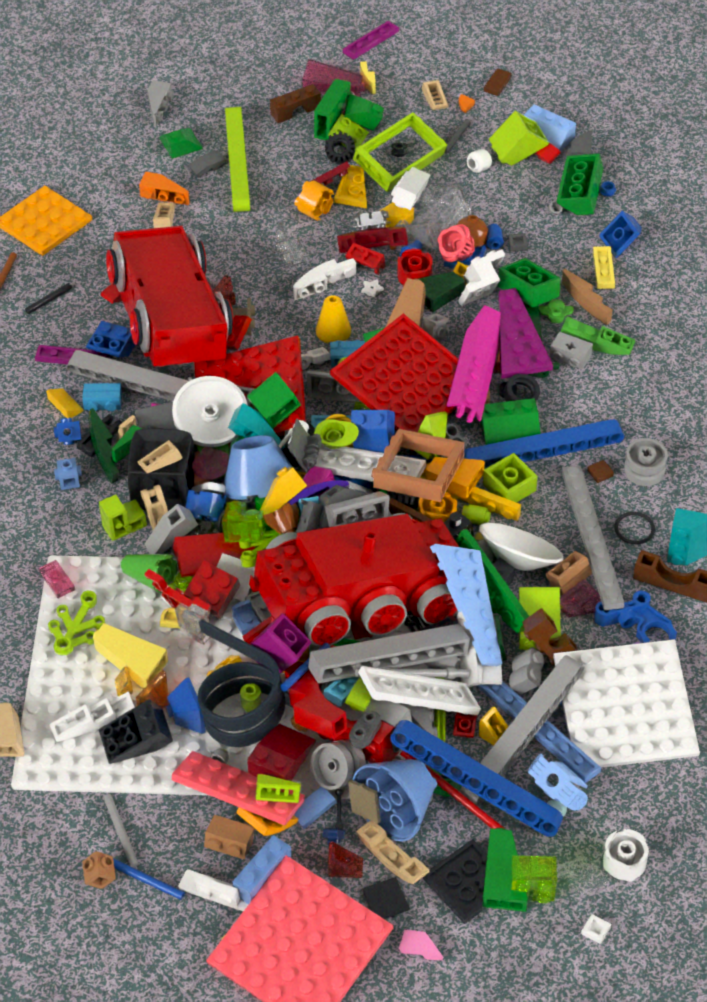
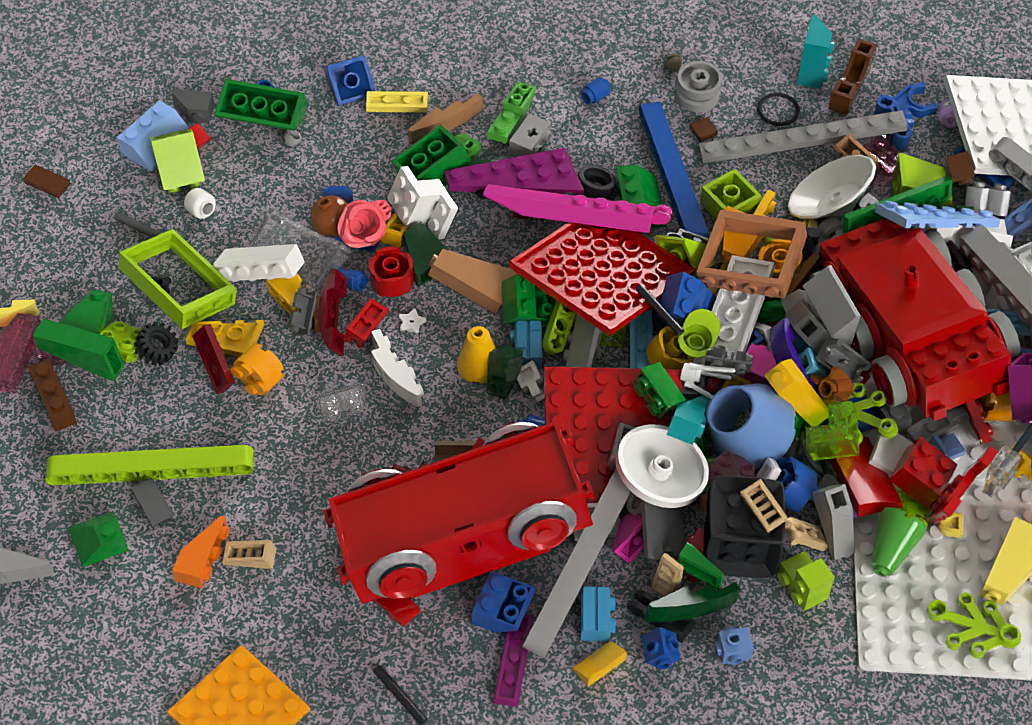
camera: 90 degrees left, 5 degrees up
(56, 579) = (905, 650): clear pink plate -> none
(320, 335) = (503, 370): none -> clear green slope
(357, 404) = (660, 310): none -> black bar
(431, 86) = (49, 251): tan slope -> none
(435, 326) = (493, 252): light grey brick -> none
(466, 103) = (80, 215): orange tile -> none
(518, 242) = (347, 175): dark grey plate -> none
(633, 393) = (595, 90): none -> blue brick
(679, 451) = (673, 61): none -> dark tan hinge

